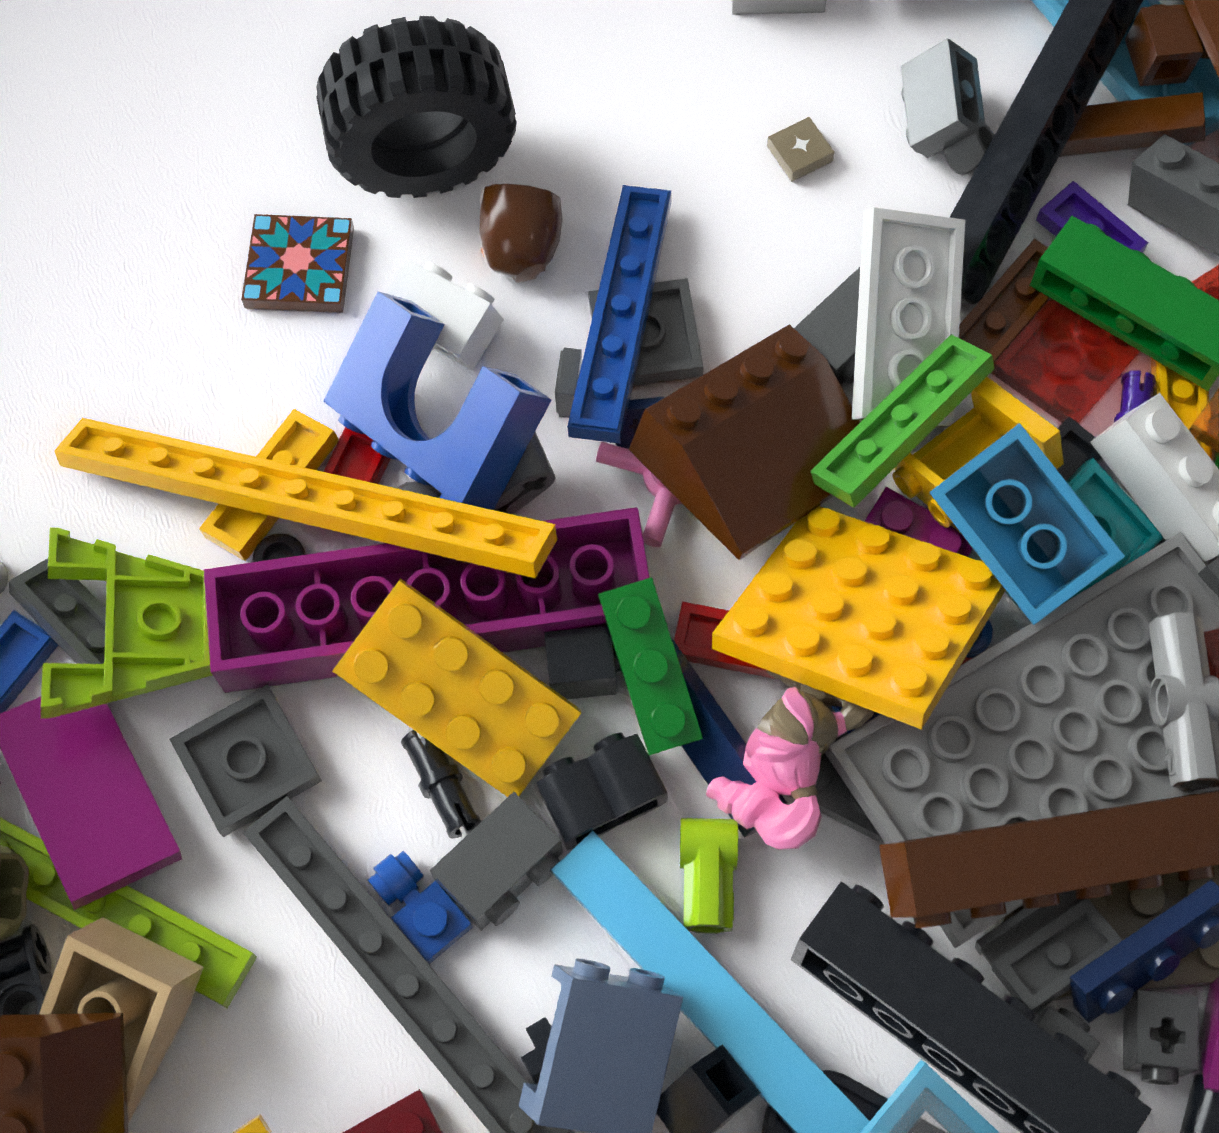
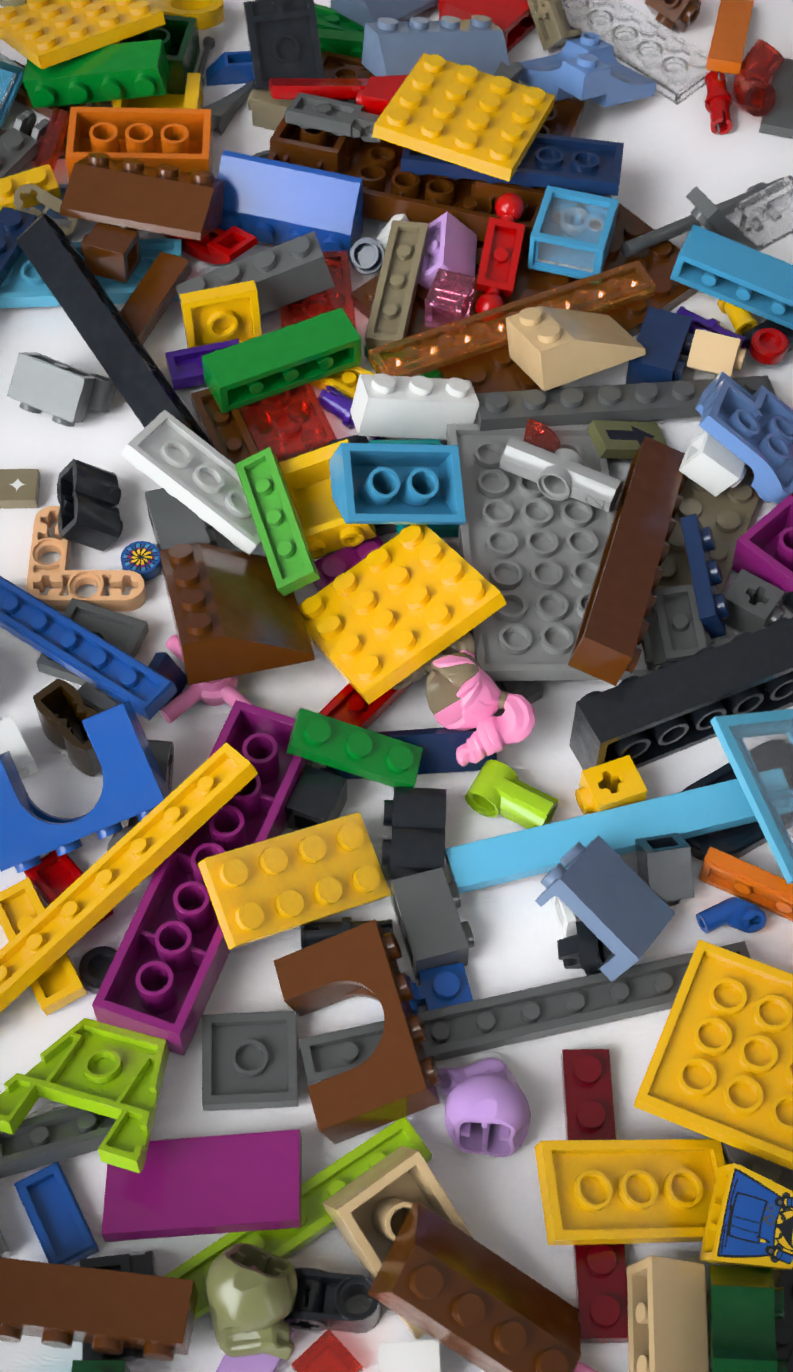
camera: 65 degrees left, 10 degrees down
(290, 919) = (397, 1074): none -> reddish brown arch
(306, 1033) = (485, 1108): none -> lavender piece
(533, 349) = (61, 718): none -> dark brown brick
(717, 249) = (58, 574): none -> light nougat beam
(781, 311) = (142, 558): none -> tile
(805, 984) = (610, 786): none -> yellow brick
(811, 226) = (88, 505): none -> black brick
(1156, 205) = (221, 314): none -> yellow plate

